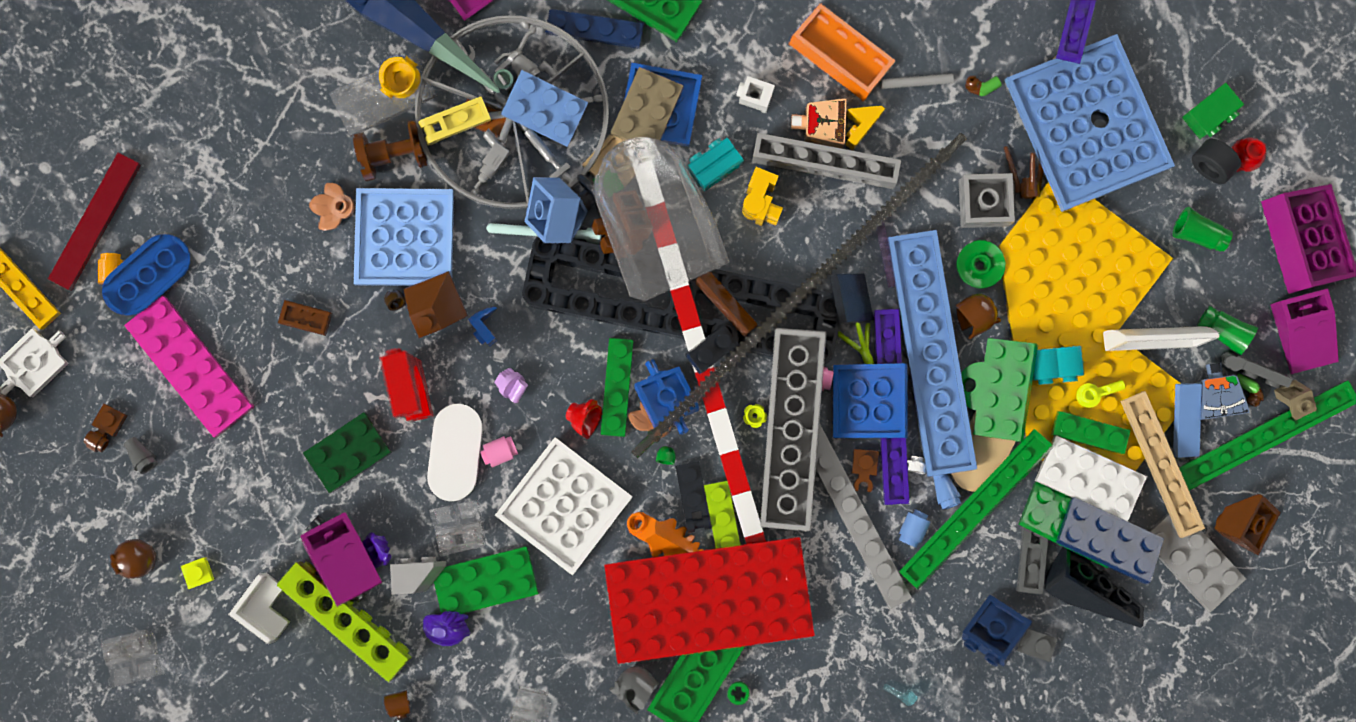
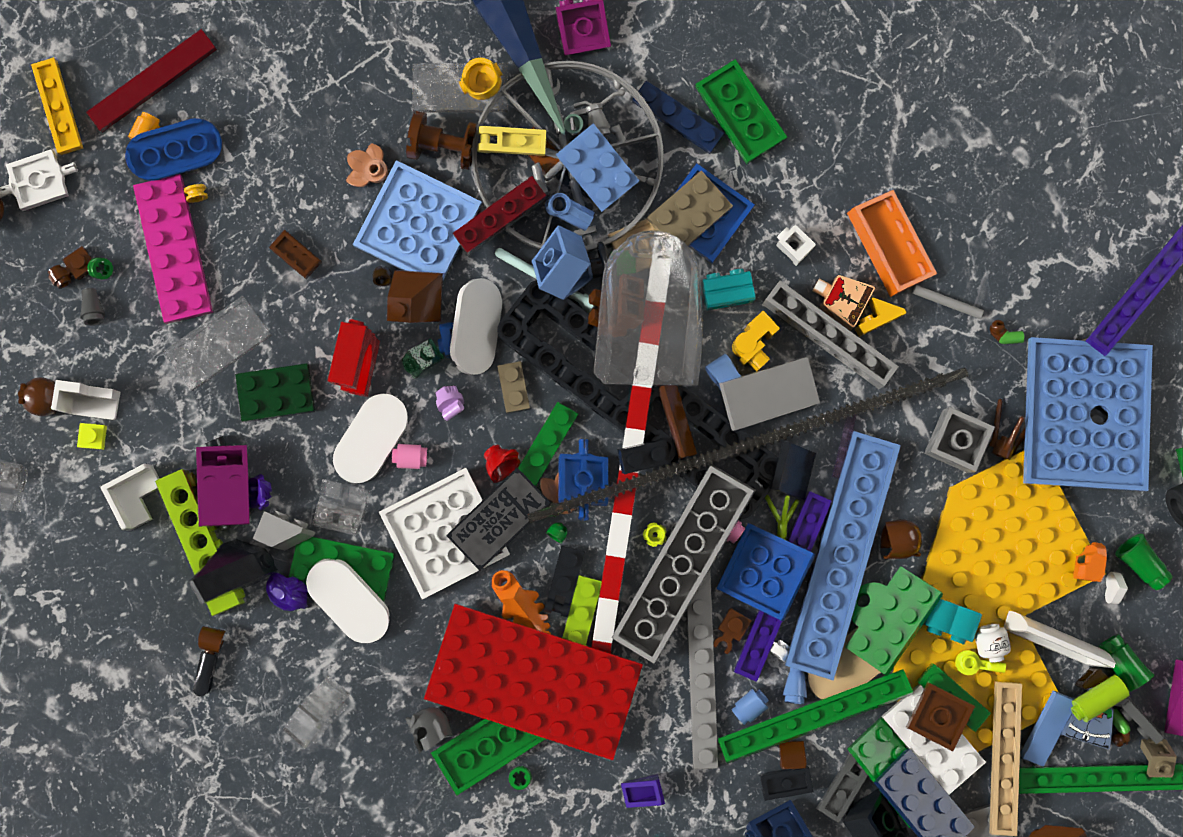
camera: 25 degrees right, 0 degrees up
(138, 418) = (107, 272): none -> green bush
(176, 542) = (85, 400): none -> white panel
(186, 305) = (195, 193): none -> yellow bush
(272, 433) = (217, 343): none -> clear plate
(386, 630) = (232, 569): none -> black wedge
(466, 357) = (421, 358): none -> clear green bracket
(476, 194) = (500, 216): none -> dark red piece
(502, 304) = (476, 326): none -> white tile
(505, 608) = (348, 600): none -> white tile
(539, 160) = (571, 212): none -> medium blue piece
(563, 344) = (513, 387): none -> dark tan plate
(606, 469) = (497, 519): none -> flat silver tile
(747, 241) = (722, 370): none -> medium blue piece
(797, 239) = (769, 393): none -> light grey tile
(855, 651) = (643, 792): none -> dark purple slope
(972, 554) = (792, 755): none -> reddish brown slope
(979, 581) = (786, 783): none -> black plate
(989, 256) = (938, 495): green dish -> none
(1087, 455) = (940, 716): none -> reddish brown plate
(1102, 366) = (992, 642): none -> white head
(1155, 254) = (1091, 563): none -> orange rock
(1187, 265) = (1115, 588): none -> white tile
(1205, 356) = (1091, 678): none -> dark brown slope
(1219, 371) = (1099, 699): none -> lime brick

